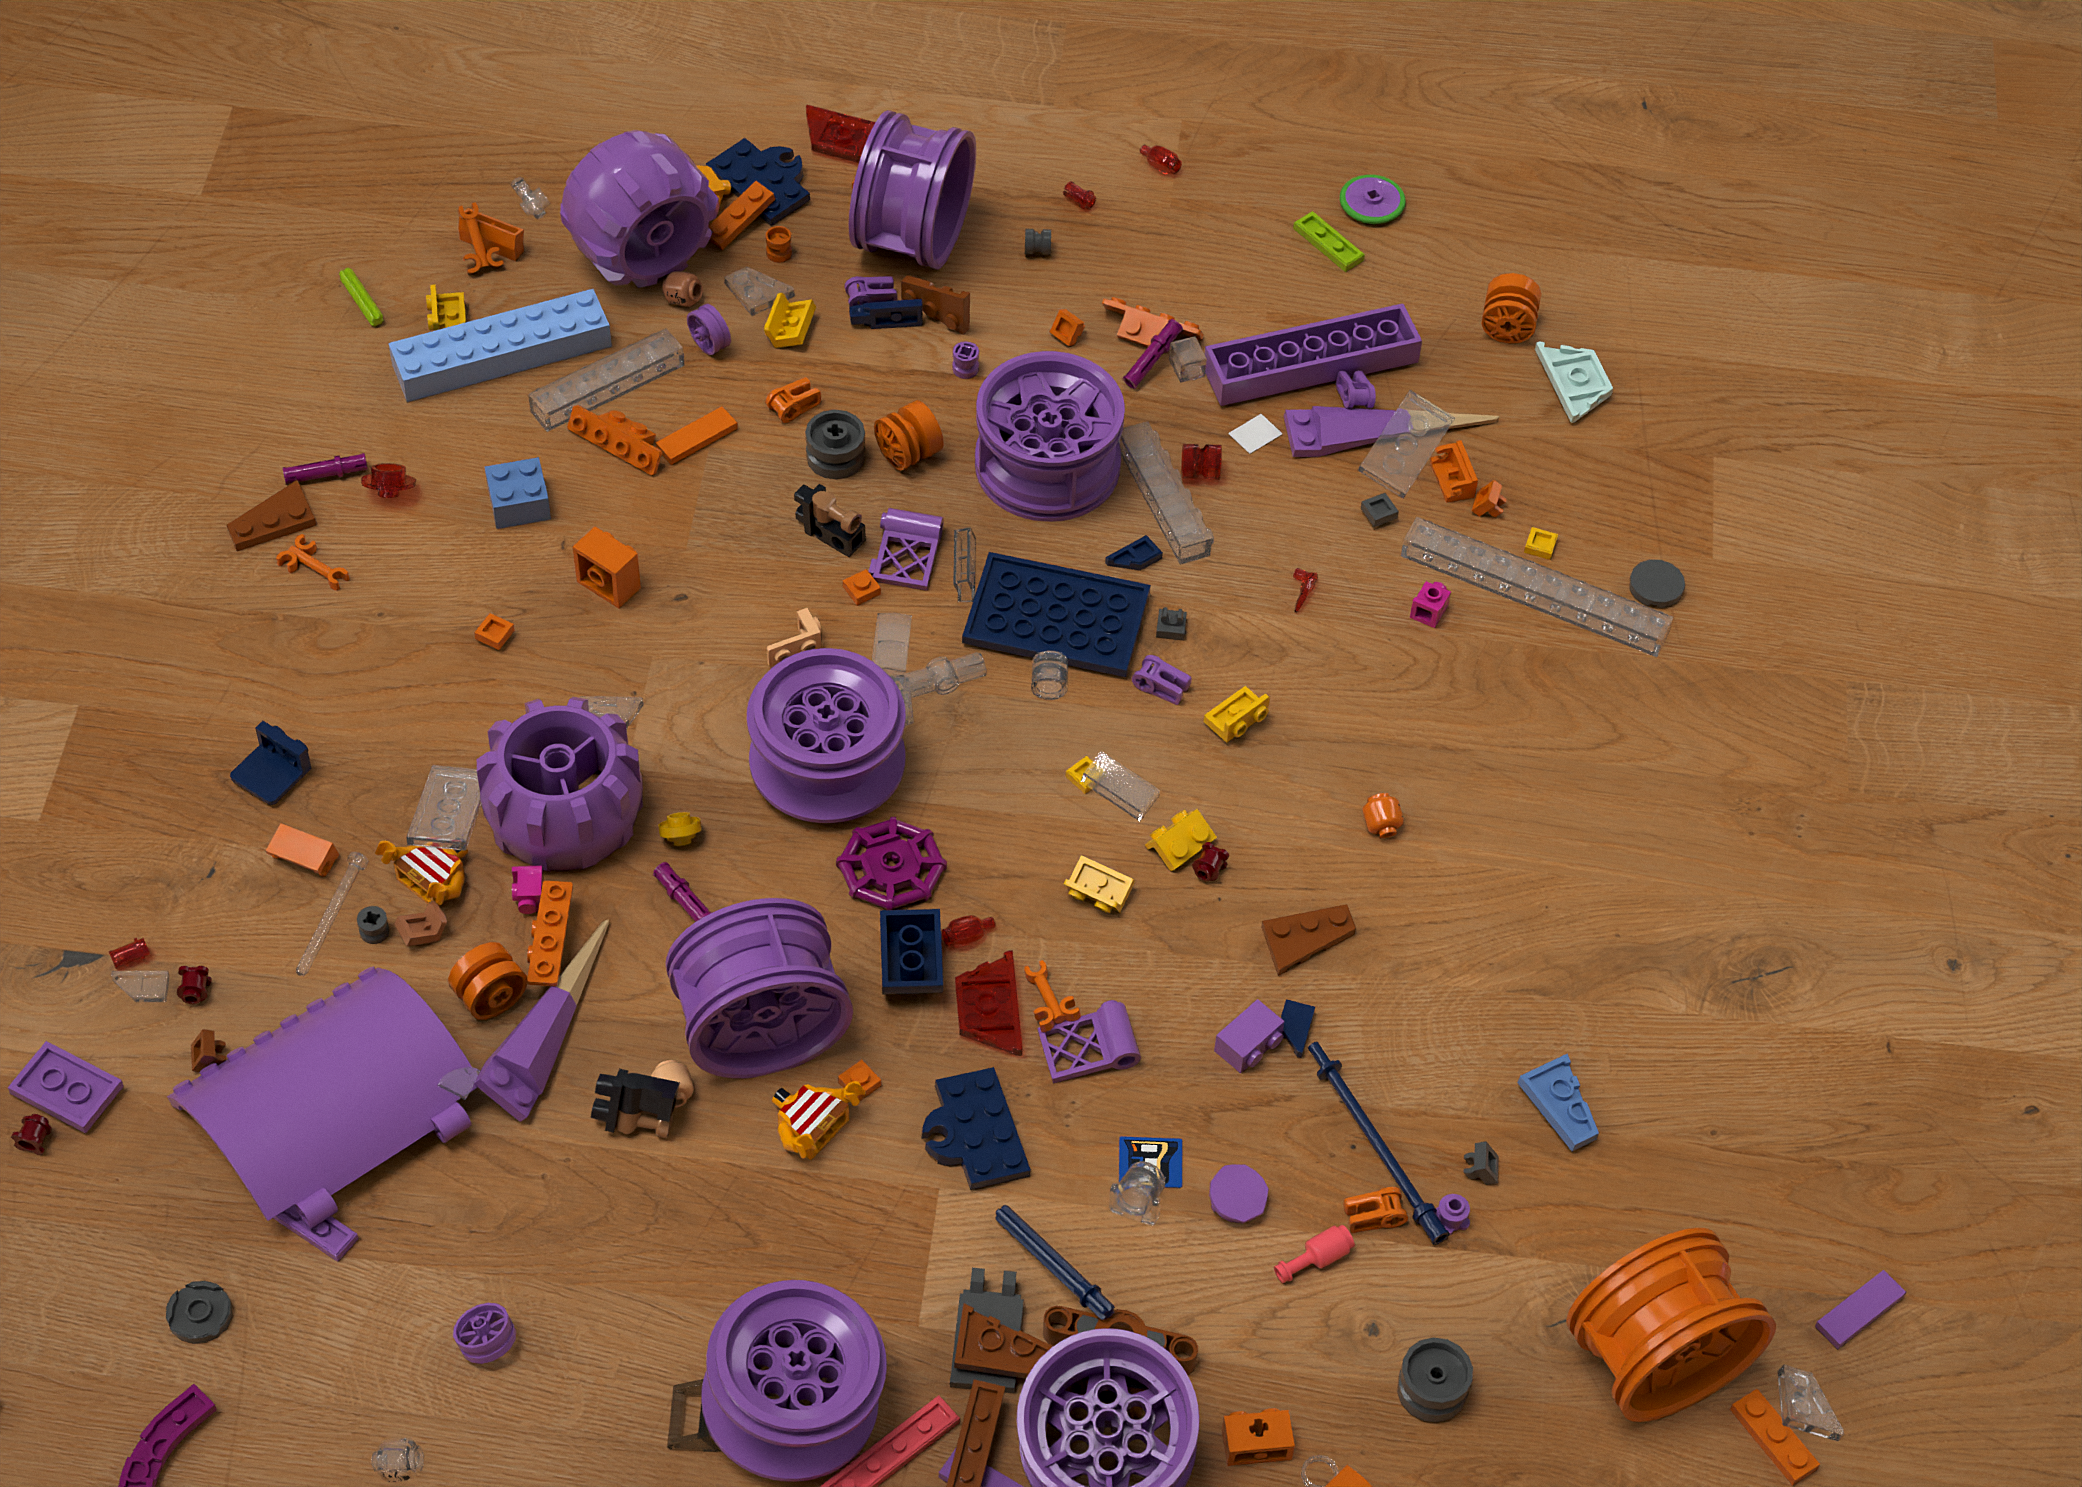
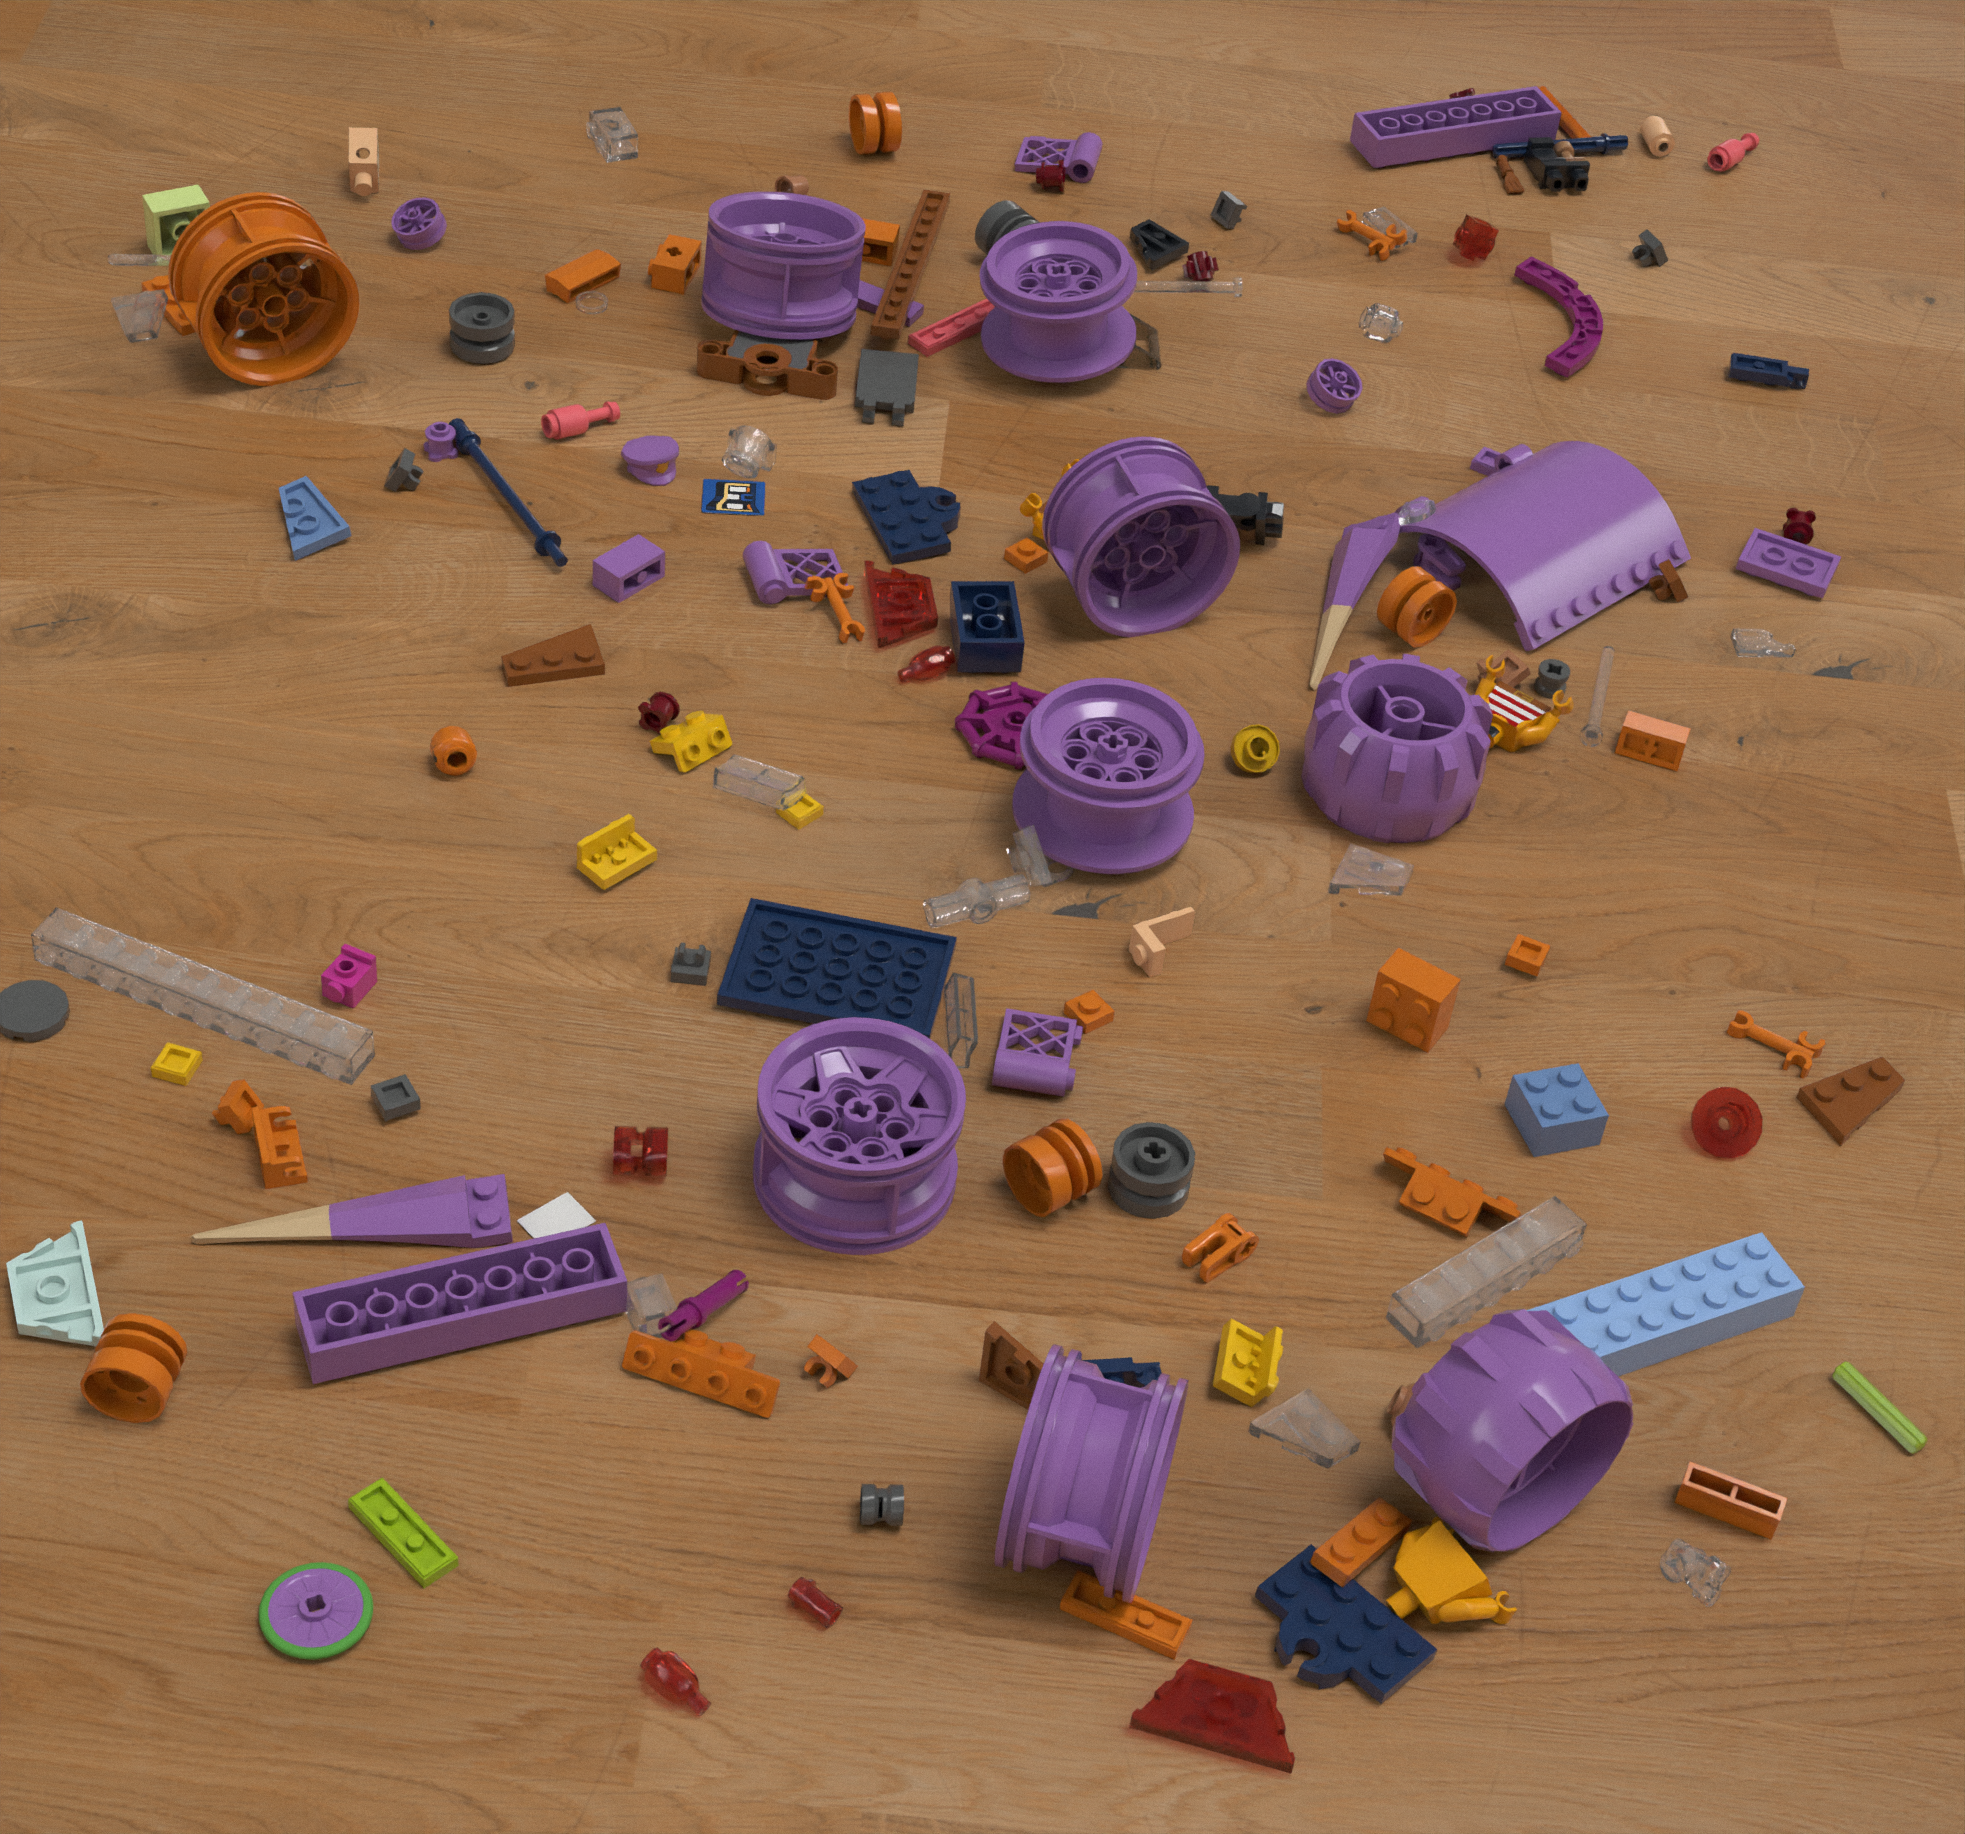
camera: 175 degrees right, 10 degrees down
(129, 952) = (1779, 665): clear red pin -> none
(193, 984) = (1709, 632): dark red brick -> none
(199, 1312) = (1588, 422): dark grey tile -> none
(273, 765) = (1721, 818): dark blue bracket -> none
(326, 468) = (1803, 1154): magenta pin -> none
(446, 309) = (1746, 1368): yellow bracket -> none
(446, 809) = (1515, 767): clear tile -> none
(481, 258) = (1746, 1467): orange bar -> none
(549, 933) = (1365, 629): orange bracket -> none
(679, 890) = (1241, 701): magenta pin -> none
(696, 435) = (1342, 1205): orange tile -> none
(708, 329) = (1362, 1328): medium lavender wheel -> none
(778, 244) = (1289, 1493): orange wheel -> none
(827, 521) = (1146, 1066): black hips -> none
(892, 642) = (1043, 937): clear piece -> none
(965, 360) = (980, 1303): medium lavender wheel -> none
(995, 1348) = (877, 356): dark orange wing -> none
(1049, 675) = (846, 889): clear piece -> none
(1089, 1294) = (797, 375): dark blue axle -> none
(1099, 884) = (787, 690): yellow bracket -> none
(1135, 555) = (733, 1050): dark blue tile -> none
(1161, 679) = (705, 895): medium lavender piece -> none
(1165, 493) = (694, 1118): clear brick -> none
(1272, 1445) = (645, 310): orange brick -> none
(1297, 1023) = (576, 586): dark blue tile -> none
(1308, 583) = (505, 1012): clear red bar -> none
(1356, 390) = (401, 1240): medium lavender piece -> none
(1375, 1210) = (518, 446): orange piece -> none
(1406, 444) = (340, 1176): clear tile -> none
(1860, 1309) = (58, 375): medium lavender tile -> none

